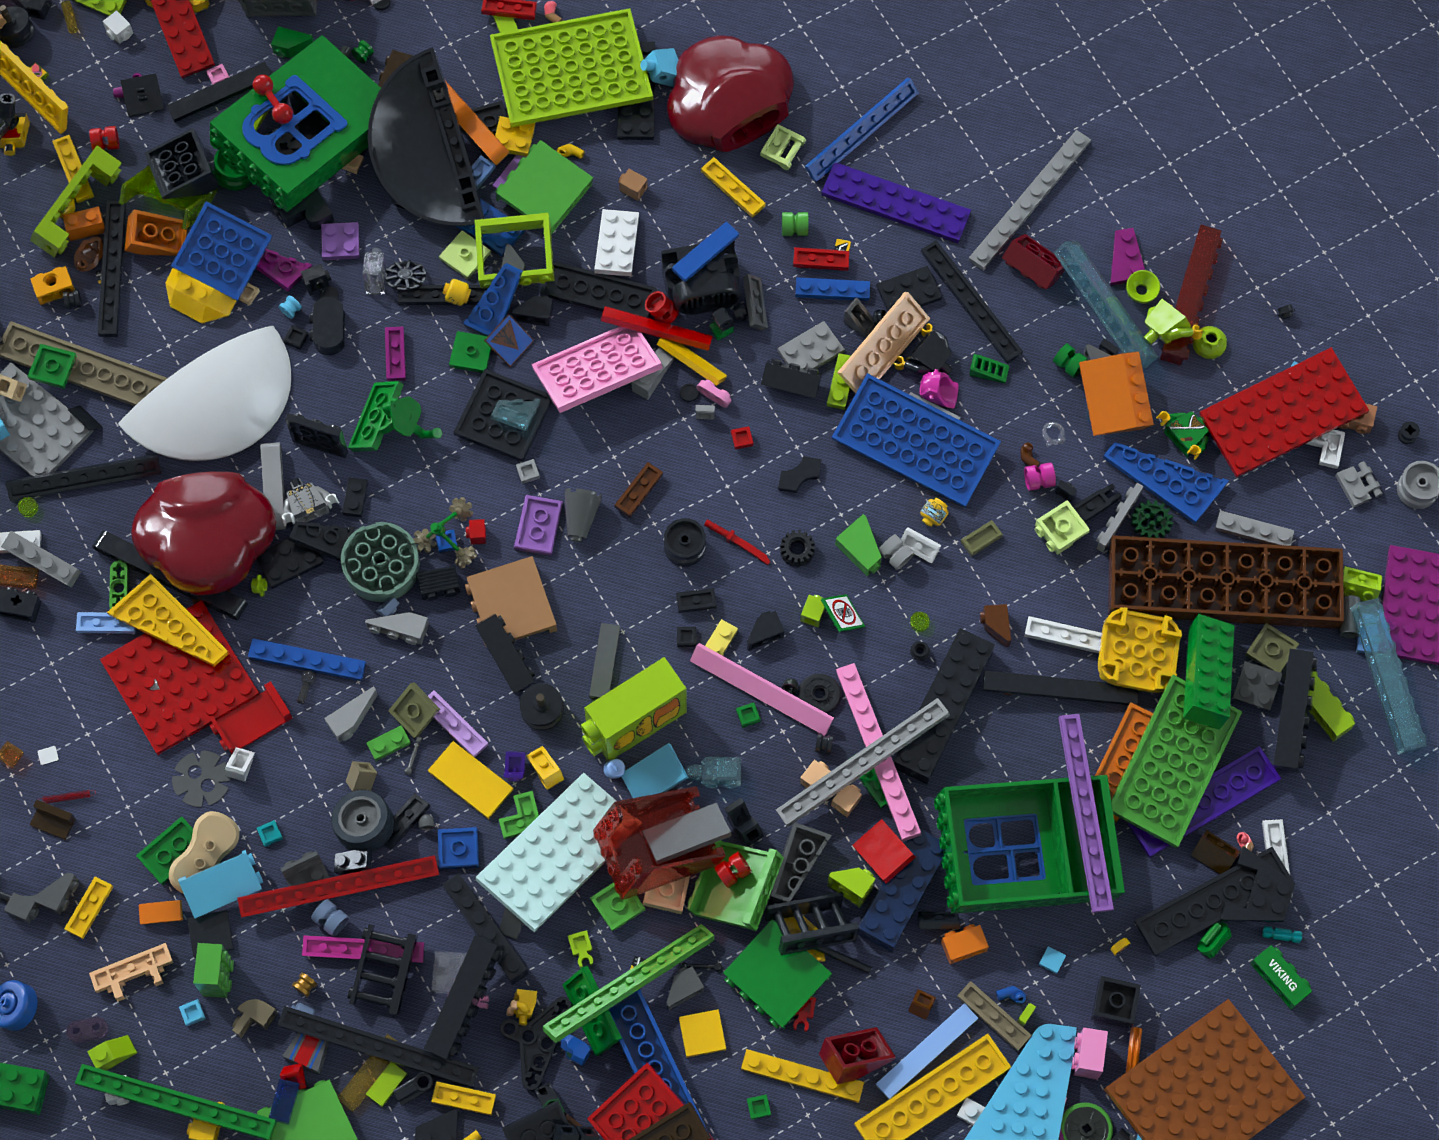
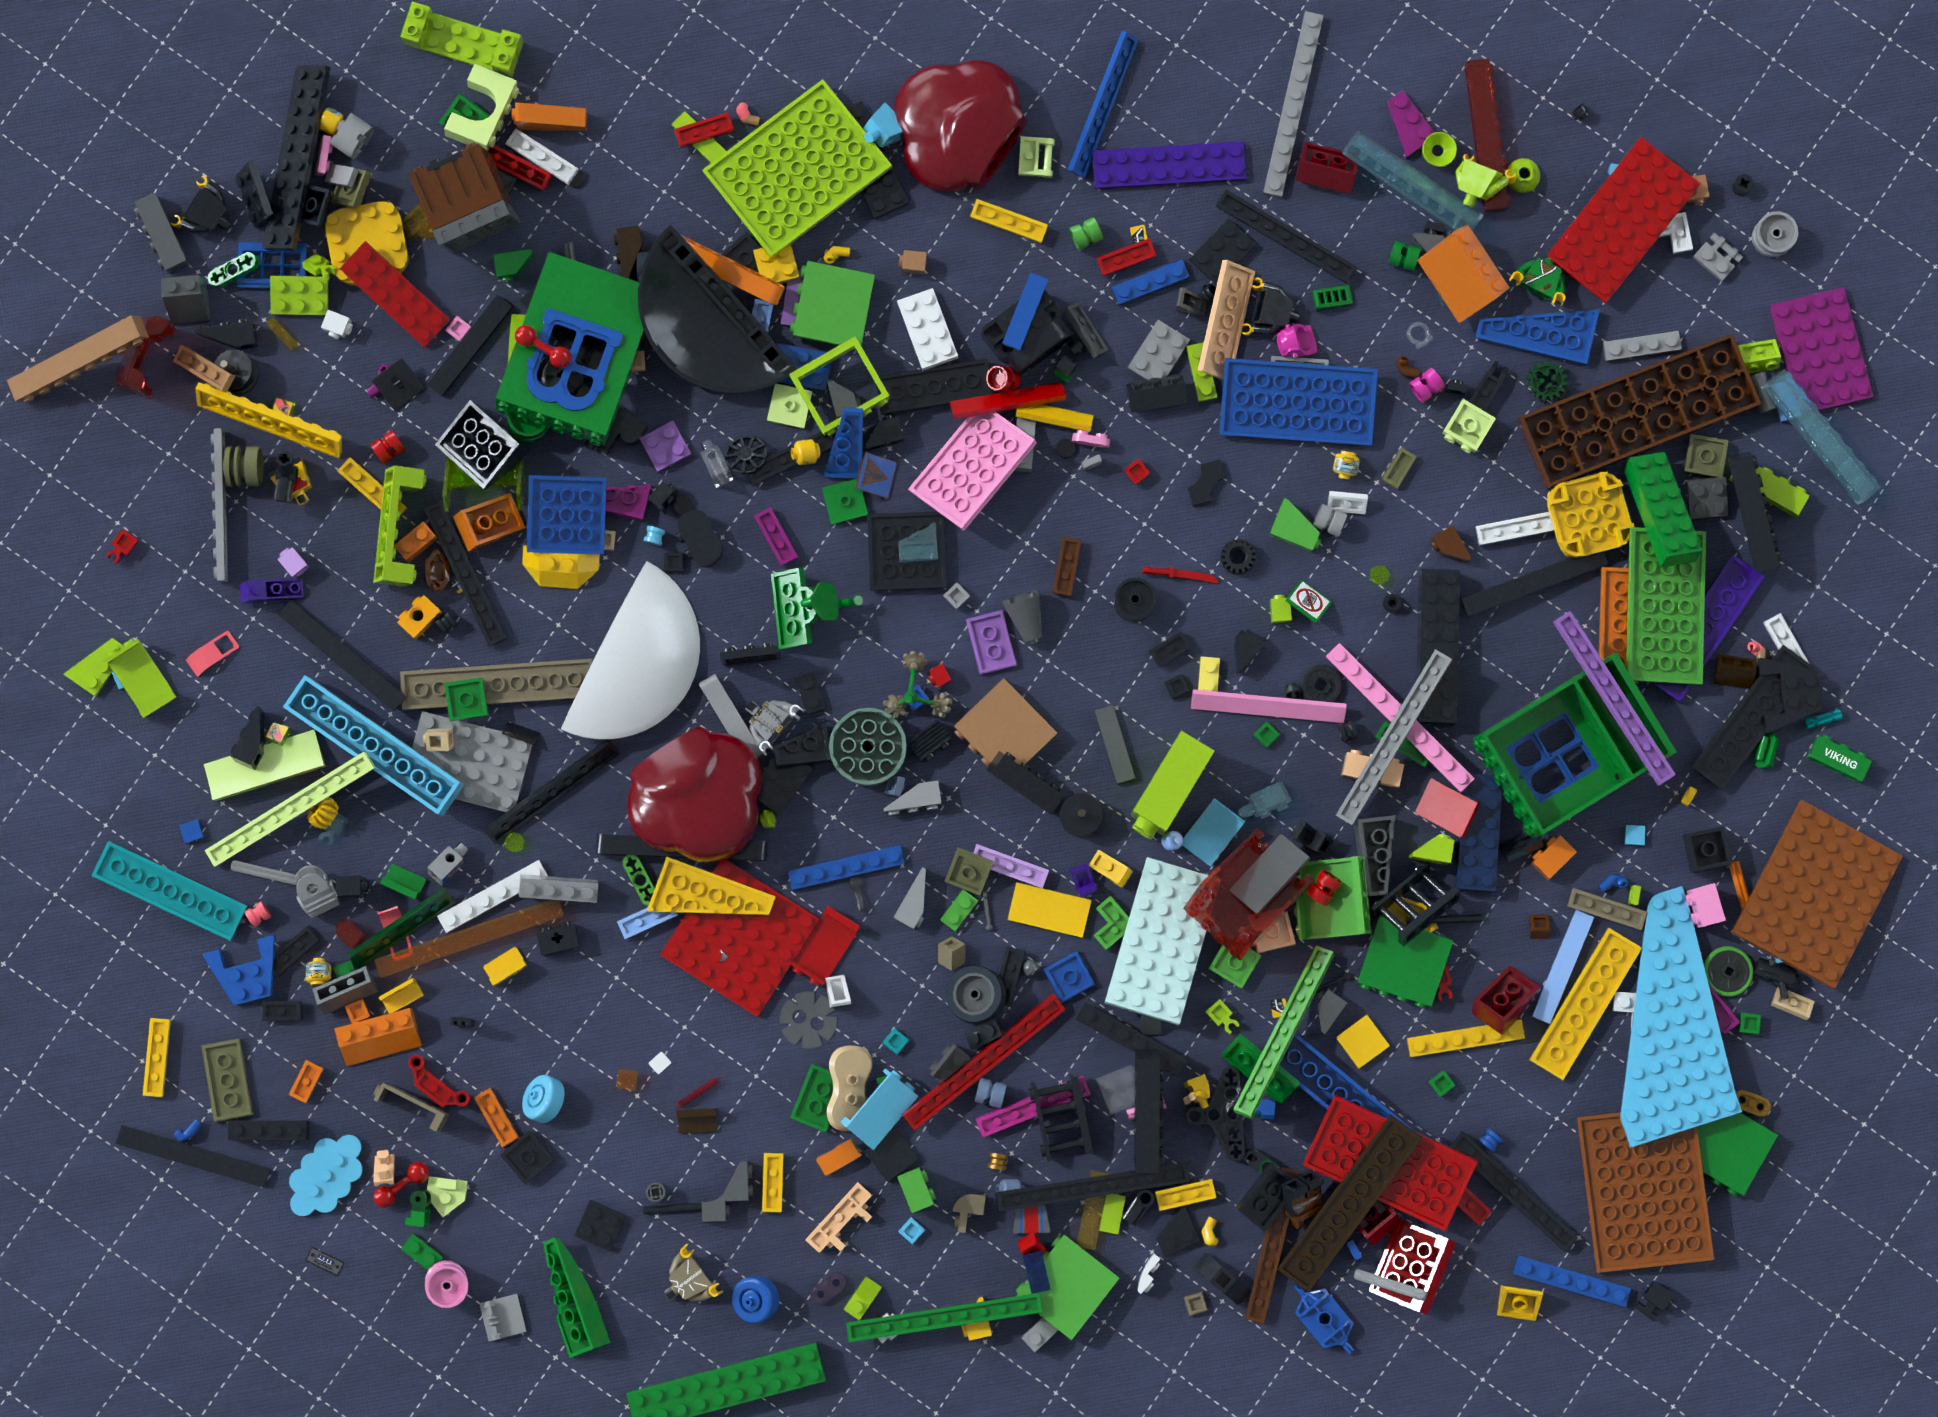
camera: 25 degrees left, 15 degrees up
(362, 51) = (586, 241): green wheel -> none
(1123, 510) = (1514, 398): light grey plate -> none

